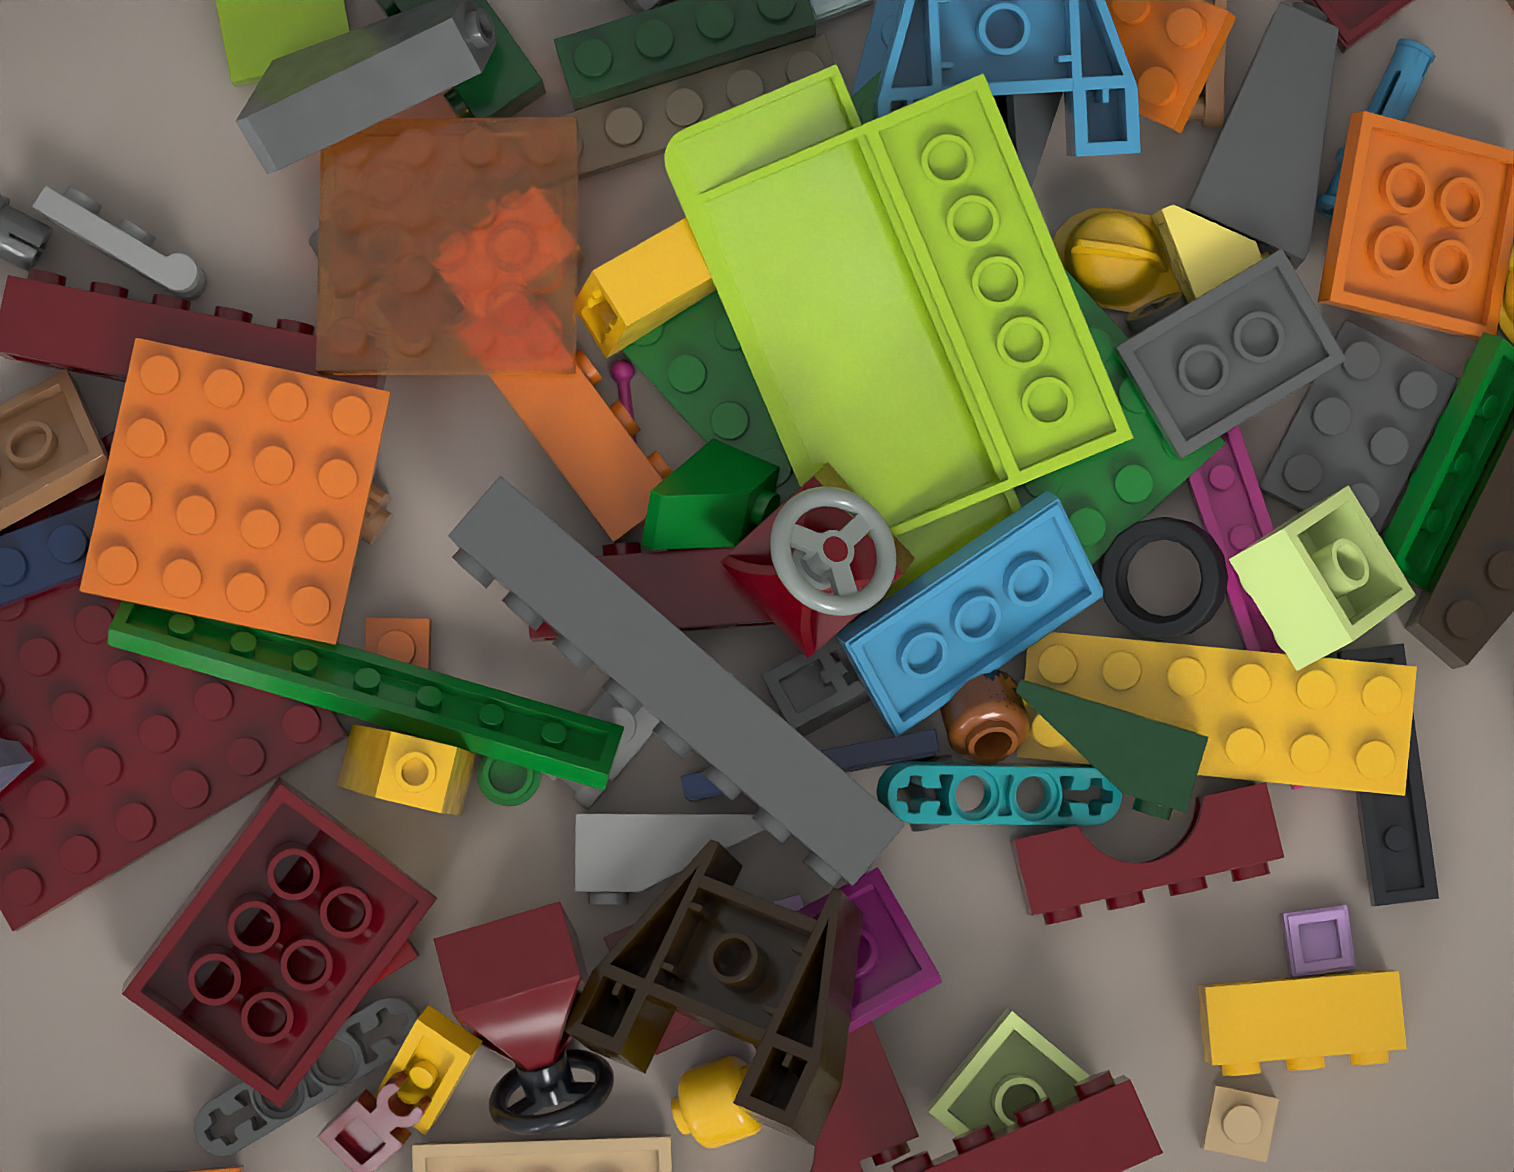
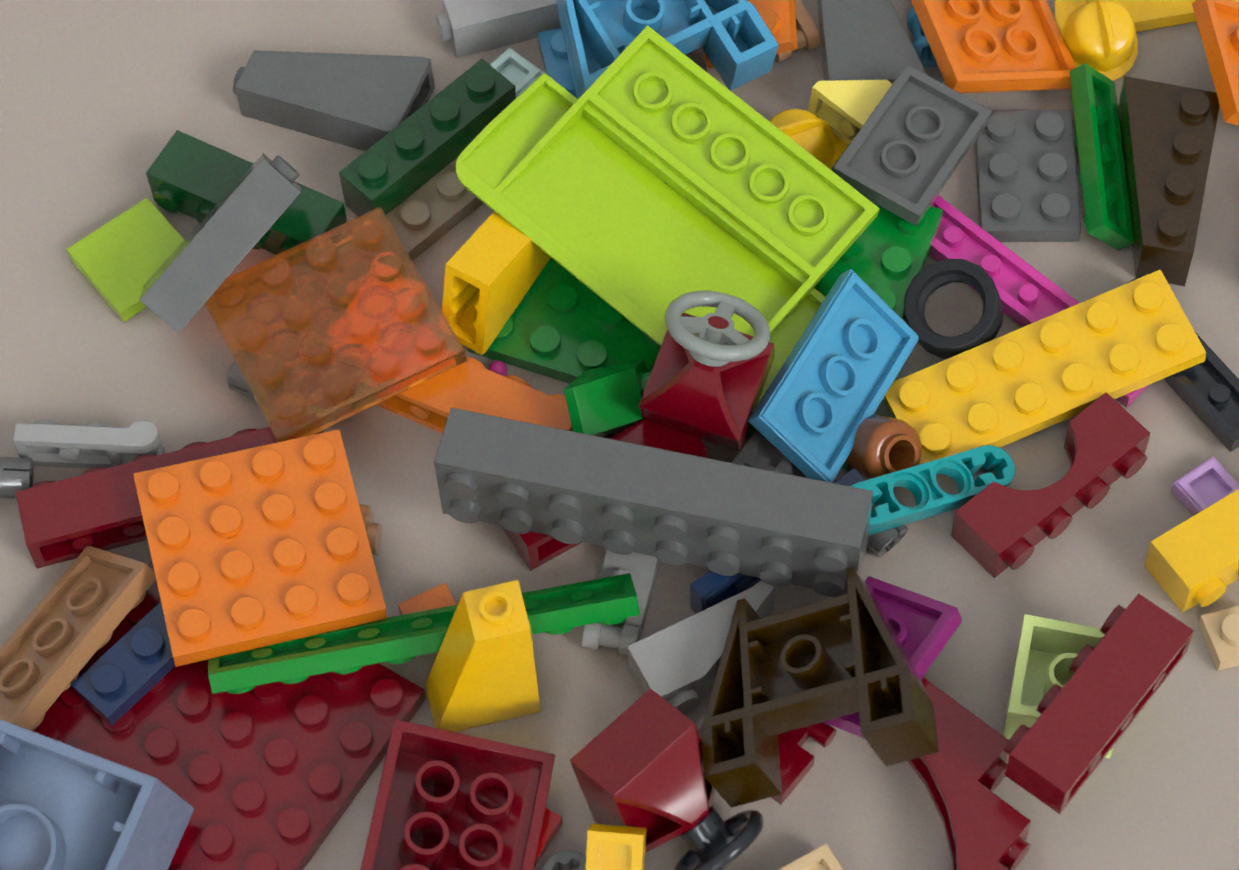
camera: 25 degrees left, 25 degrees down
(506, 782) = (561, 660): green plate -> none
(707, 1105) = (849, 801): yellow head -> none
(1132, 751) = (995, 409): dark green slope -> none
(1322, 578) = (1059, 246): yellowish green brick -> none

